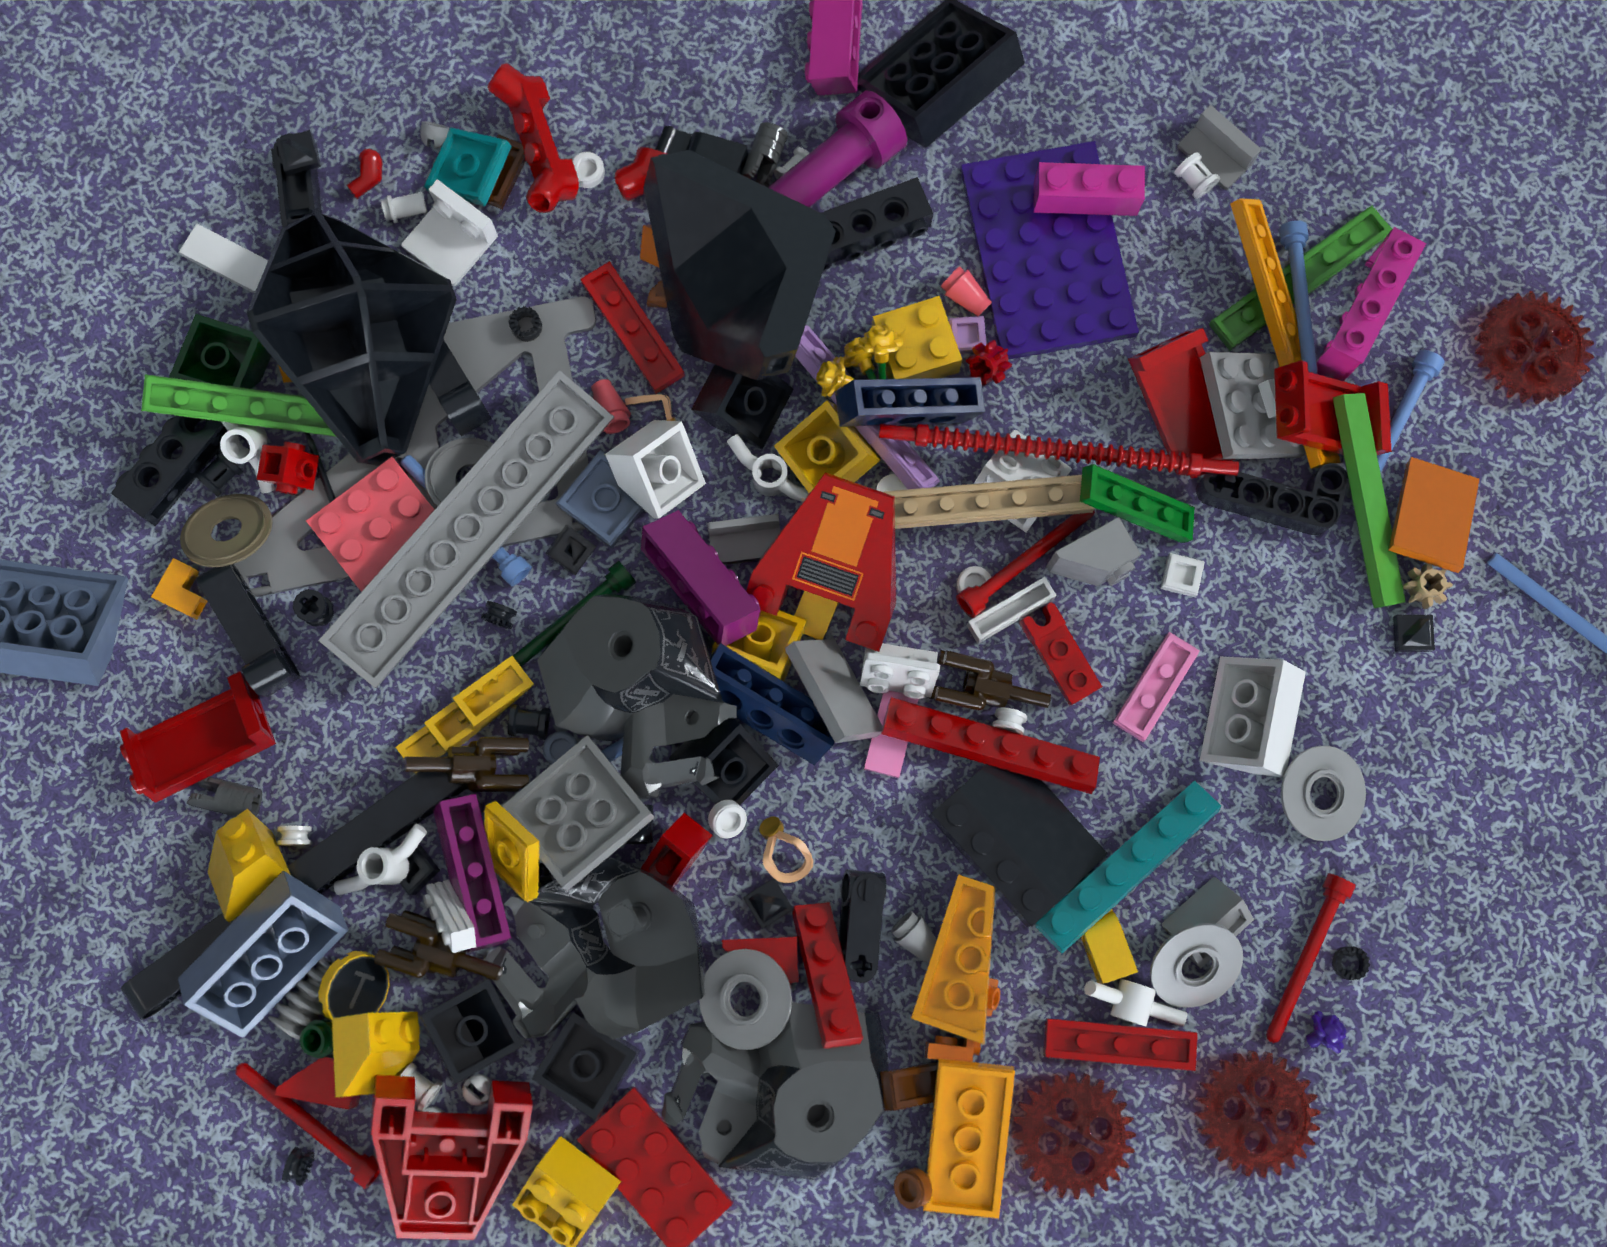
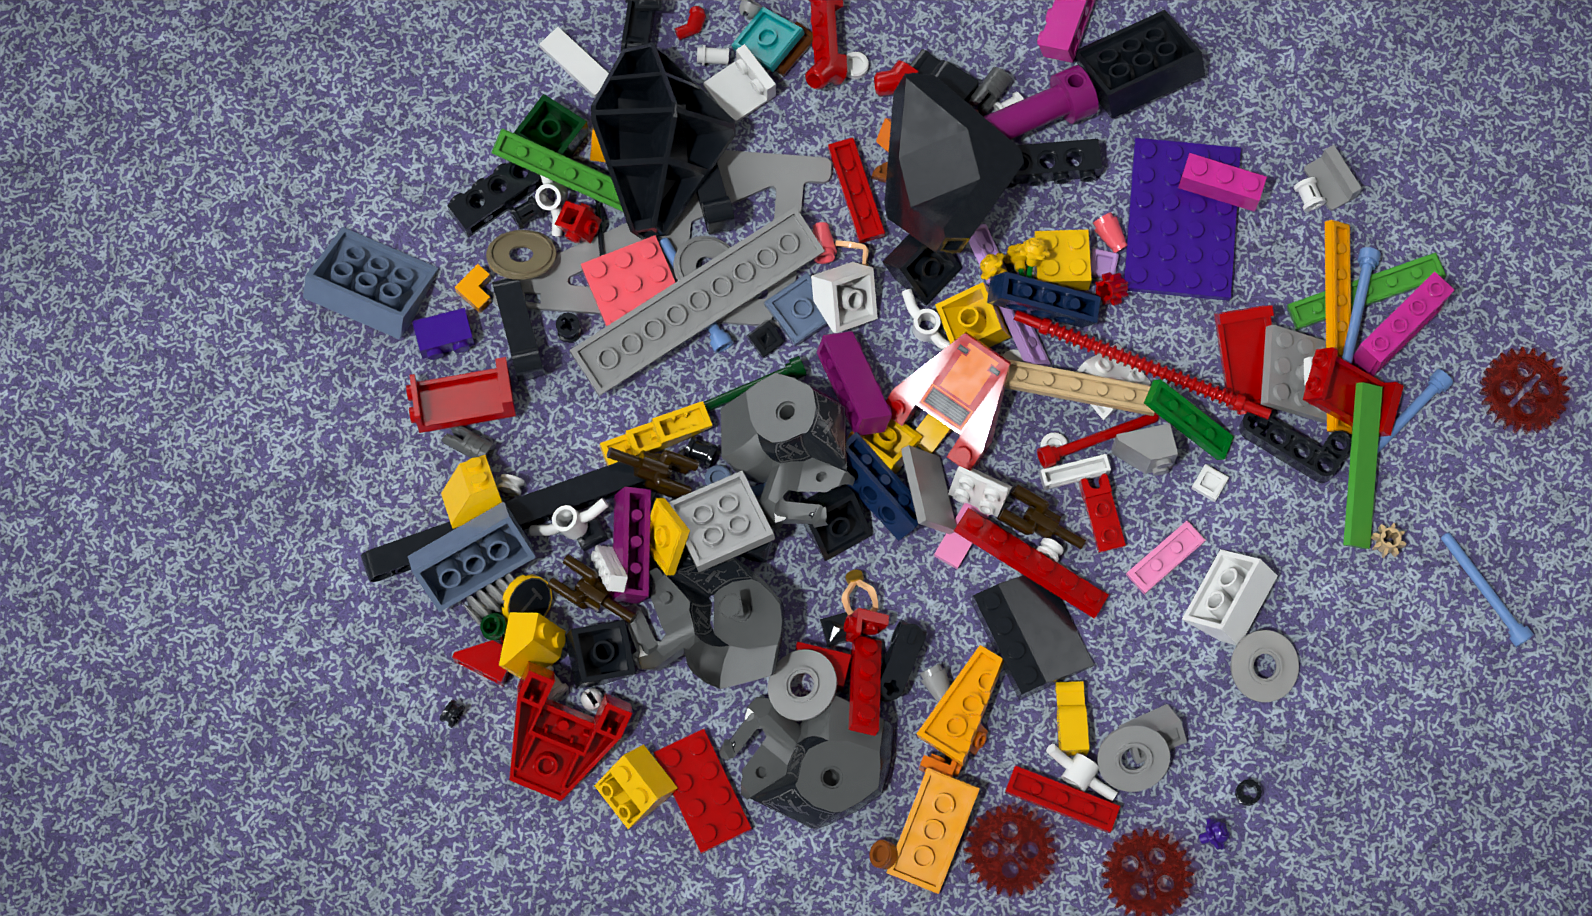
camera: 15 degrees right, 5 degrees down
(153, 662) = (443, 334): none -> dark purple brick
(362, 1167) = (497, 728): red piece -> none
(499, 614) = (701, 370): black bush -> none
(515, 327) = (770, 165): black bush -> none
(585, 1066) = (676, 700): black brick -> none
(677, 850) = (784, 570): red slope -> none
(727, 819) = (824, 561): white tile -> none
(743, 538) = (893, 365): light grey panel -> none
(800, 887) = (864, 621): none -> red bracket
(909, 1086) = (900, 780): reddish brown tile -> none
(1127, 867) = (1105, 675): teal plate -> none
(1336, 892) = (1253, 738): red piece -> none
(1413, 633) = (1369, 573): black tile -> none
(1434, 515) = (1409, 490): orange tile -> none

